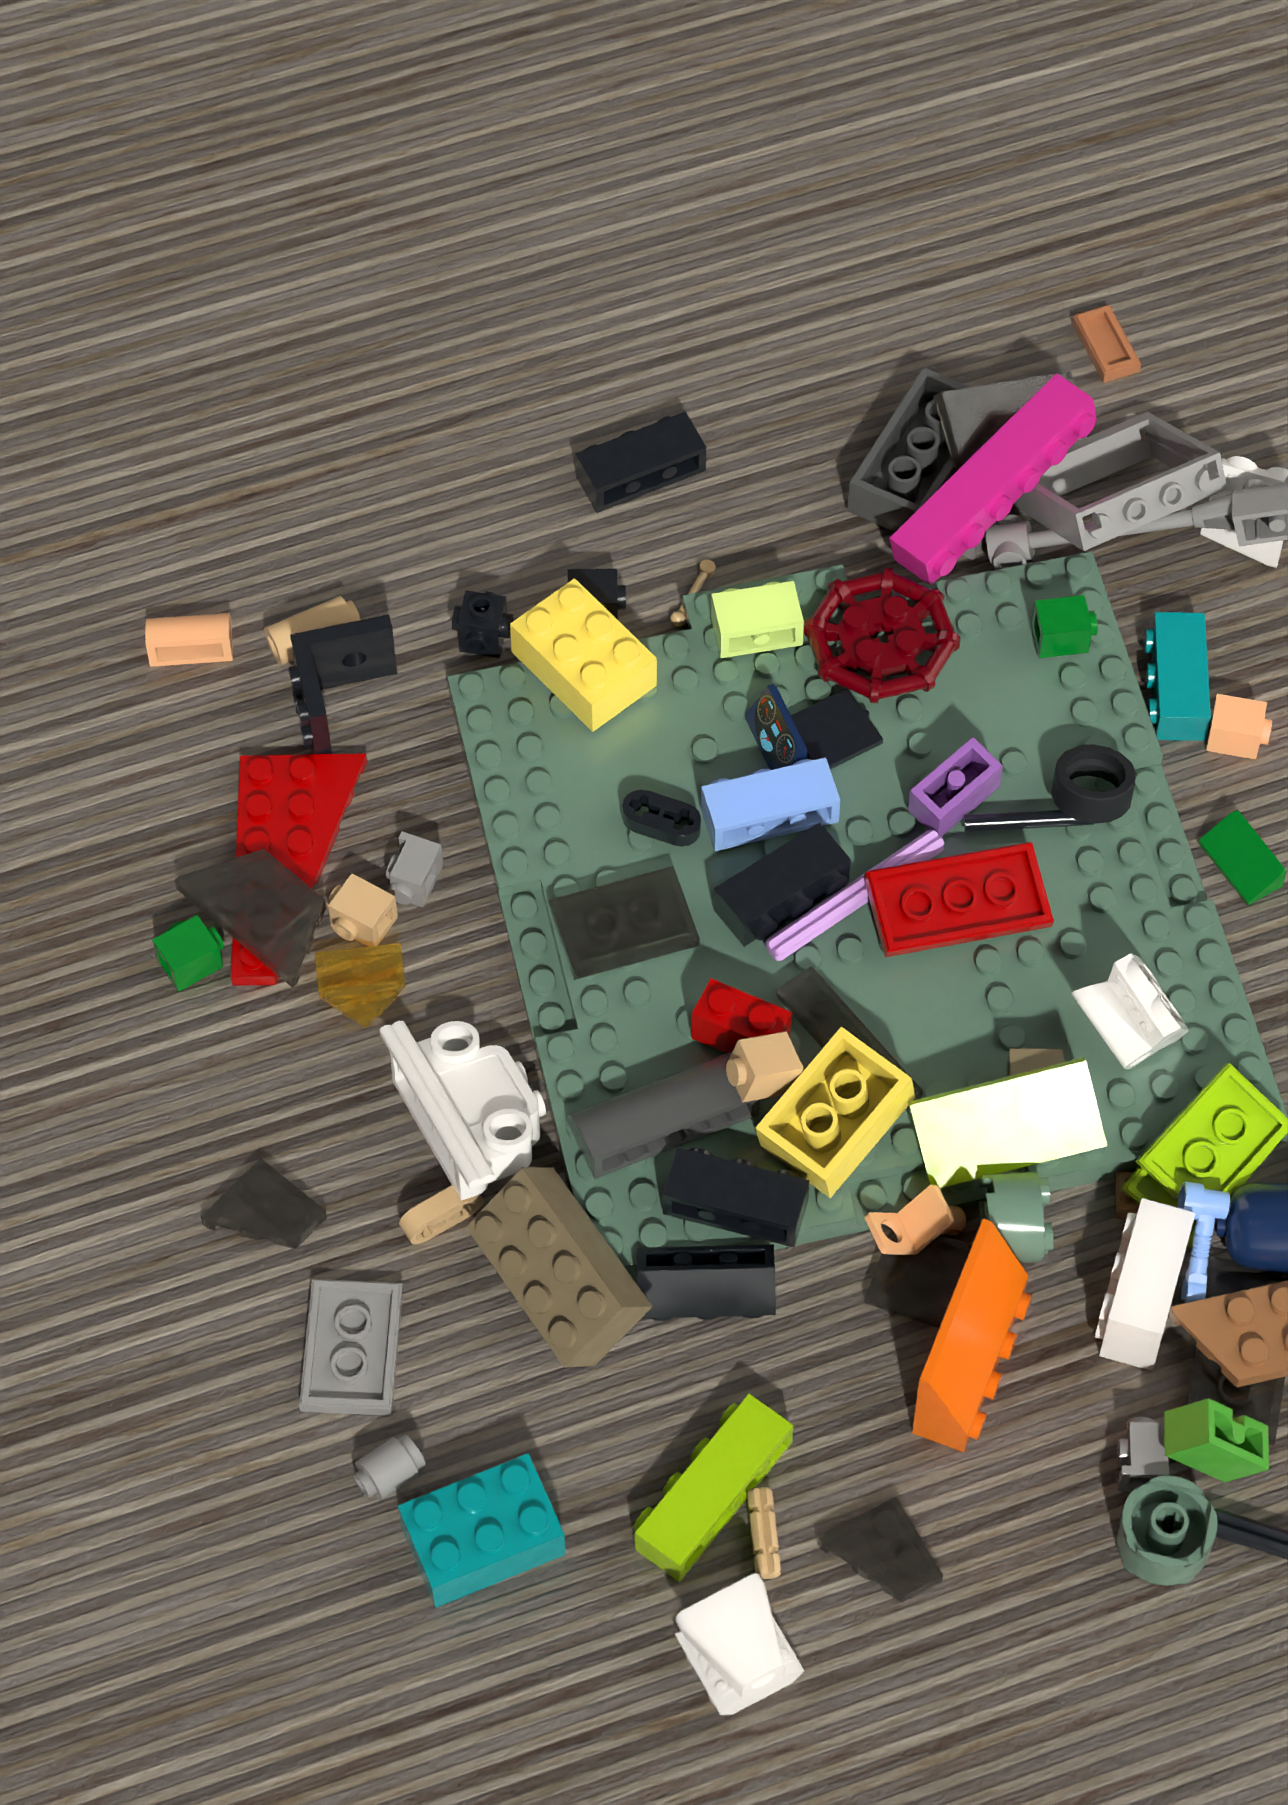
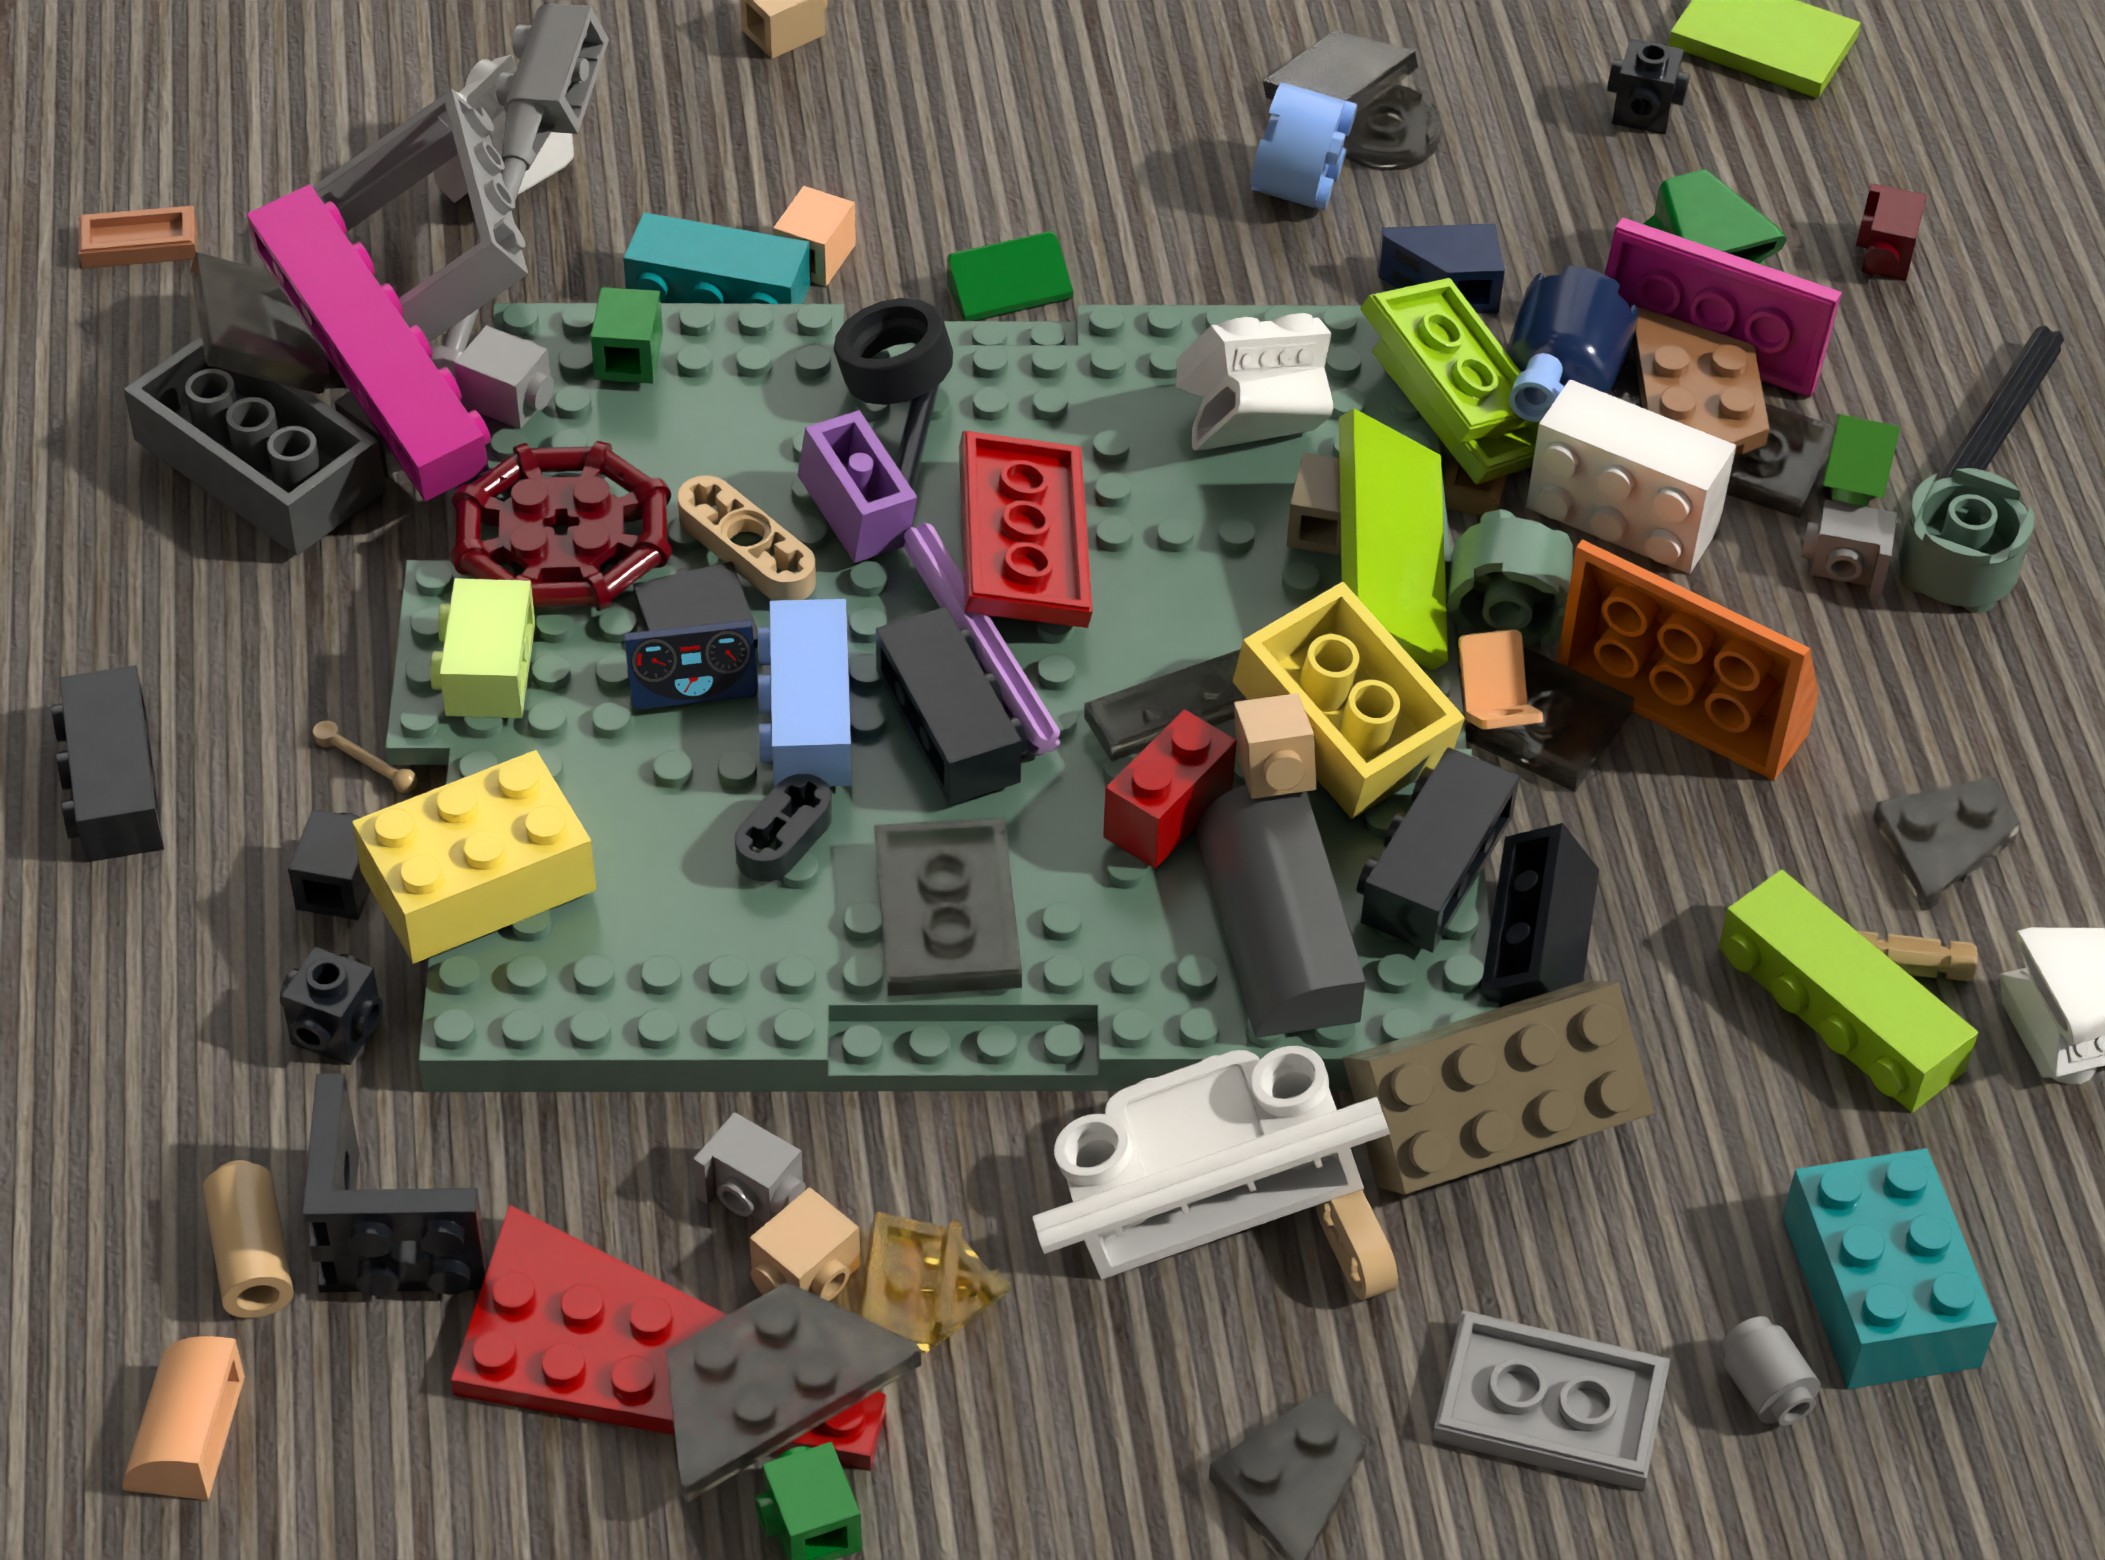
camera: 80 degrees left, 10 degrees down
(903, 759) = (741, 515): none -> tan beam
(1000, 567) = (504, 377): none -> light grey brick

